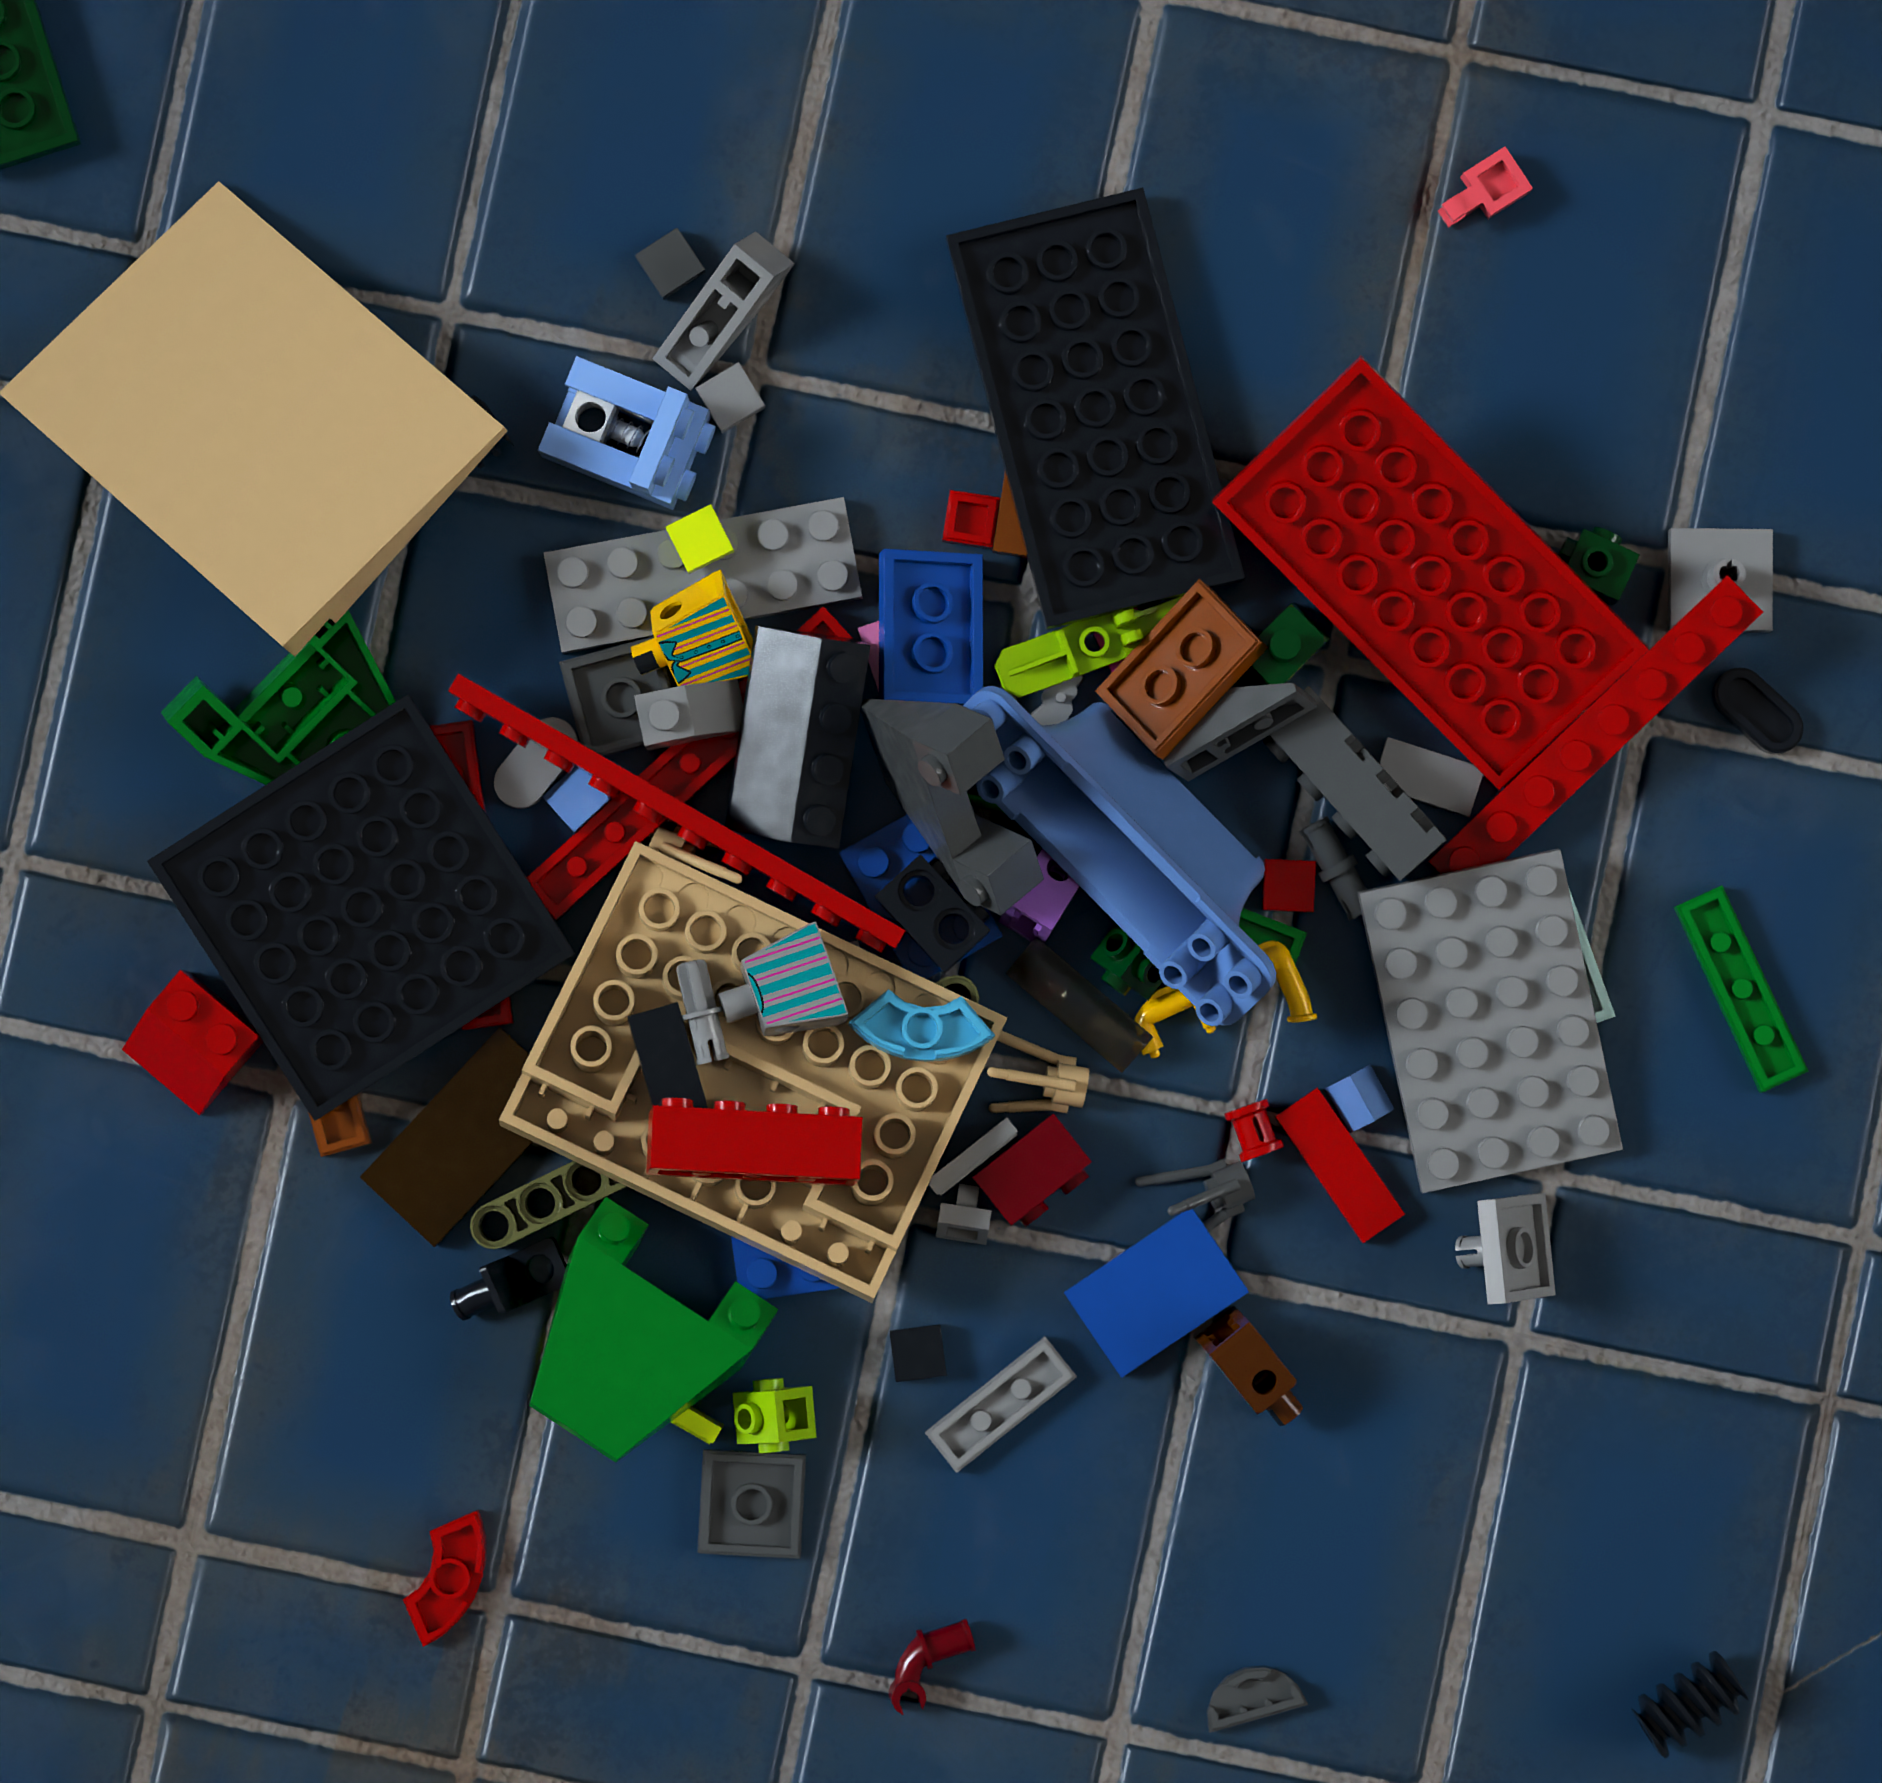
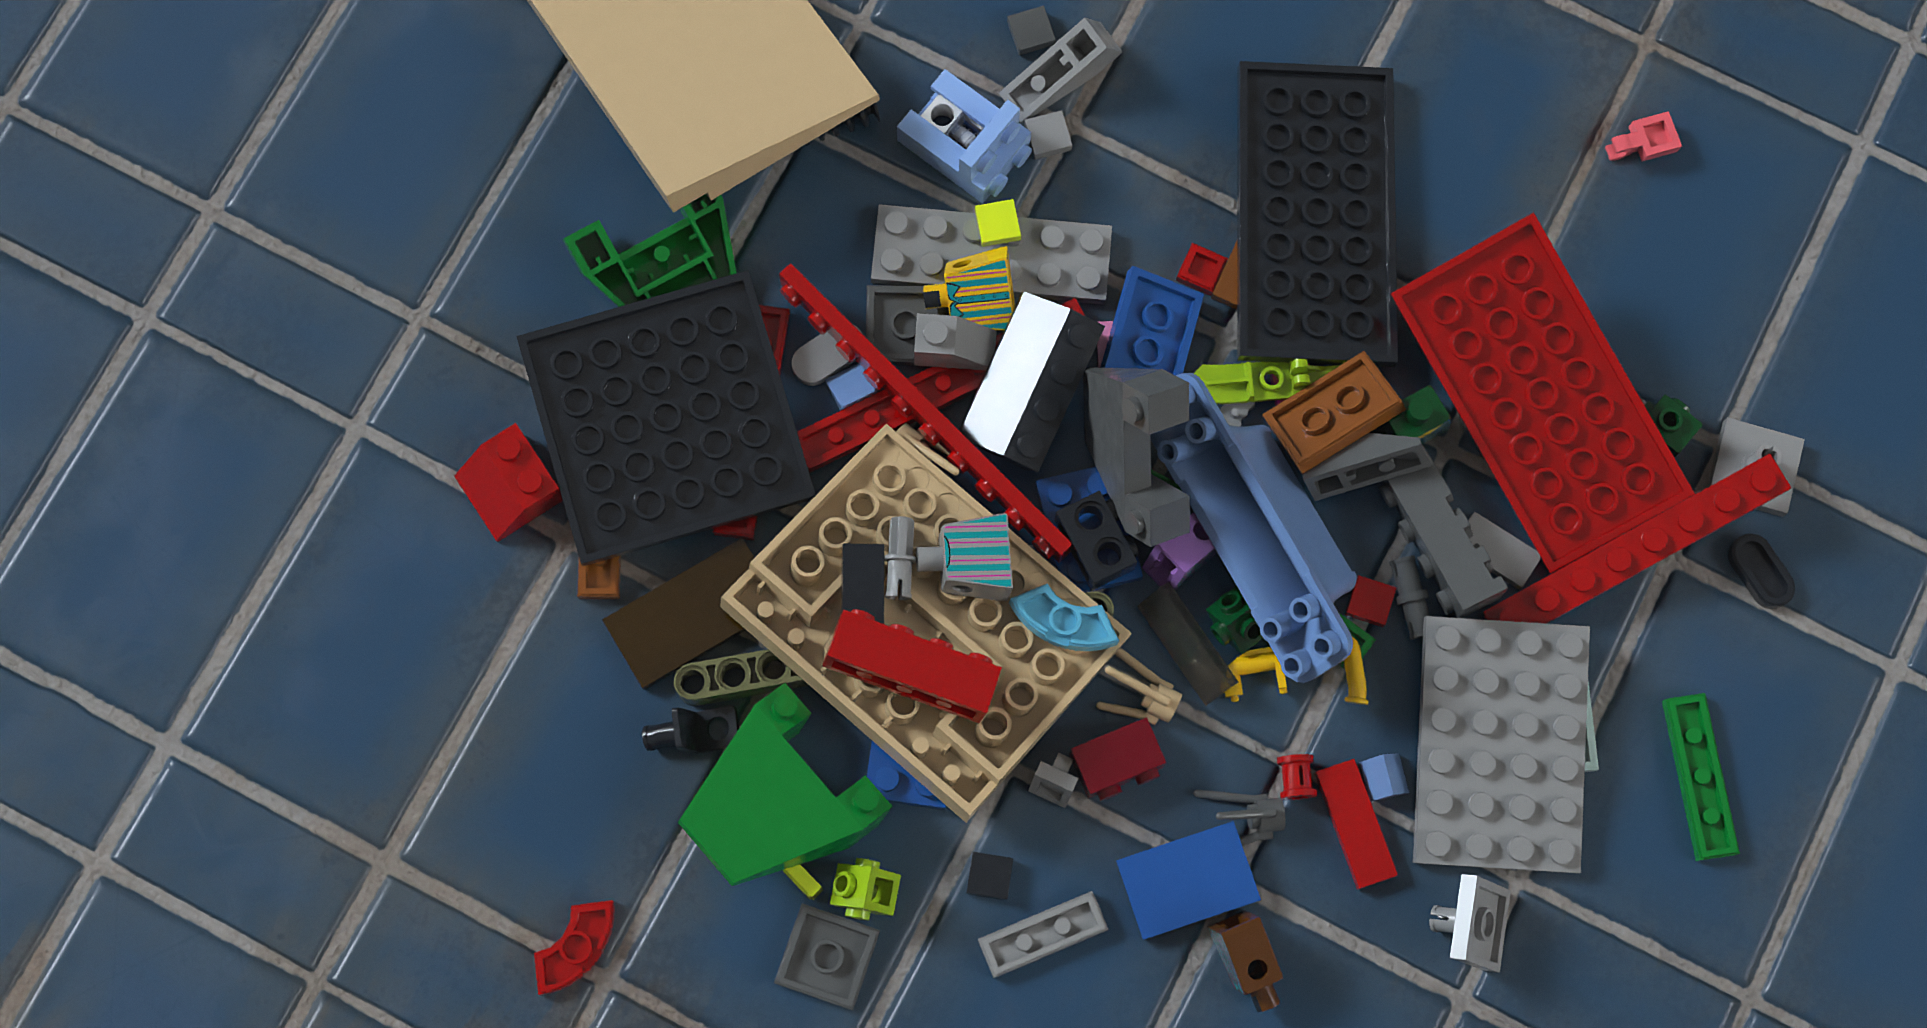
camera: 10 degrees right, 10 degrees down
(973, 1157) = (1074, 735): light grey tile -> none

